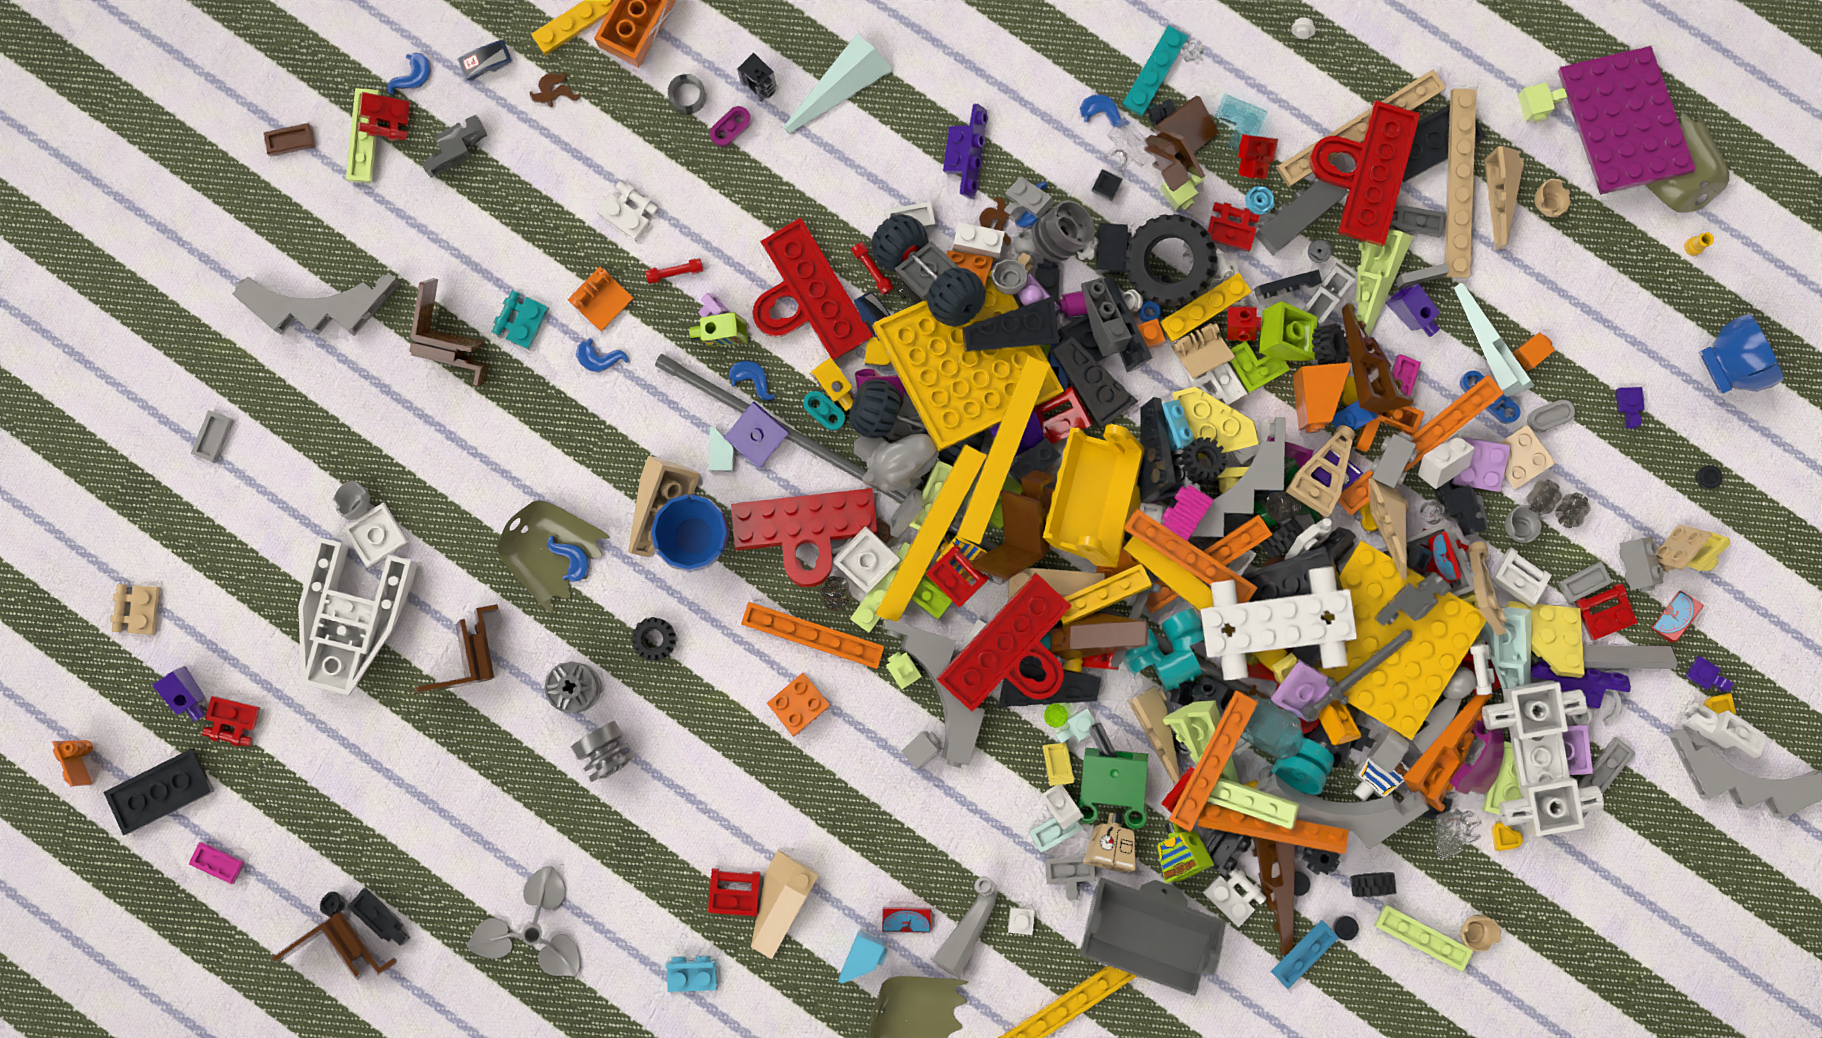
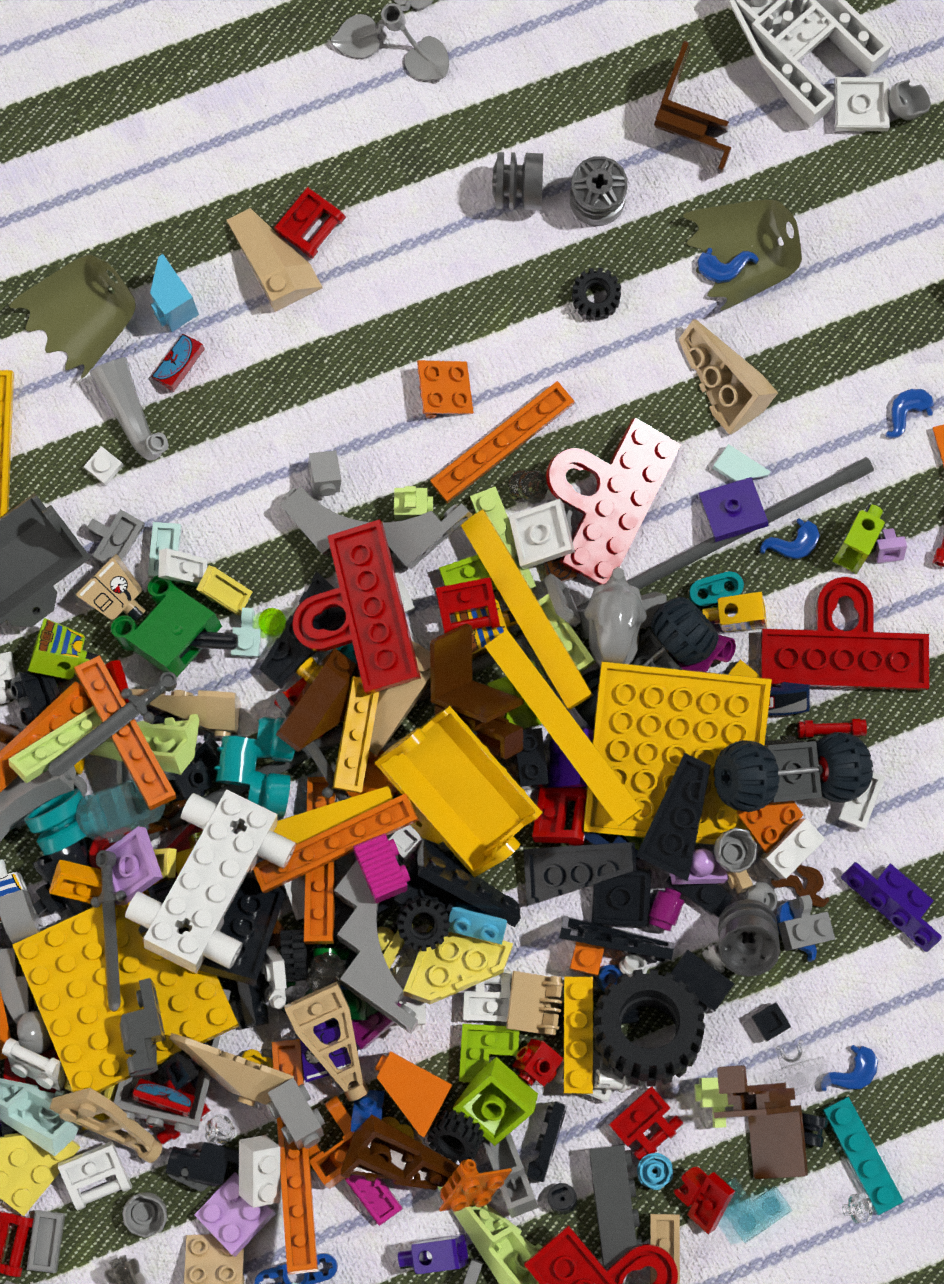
camera: 125 degrees right, 5 degrees down
(690, 533) = (674, 381): blue plate -> none
(691, 974) = (261, 141): medium azure bracket -> none
(1105, 319) = (633, 923): dark grey slope -> none
(1214, 771) = (109, 727): none -> dark grey sword
(1358, 315) = (470, 1187): none -> orange hinge
(1544, 497) = (158, 1257): clear smoke piece -> none

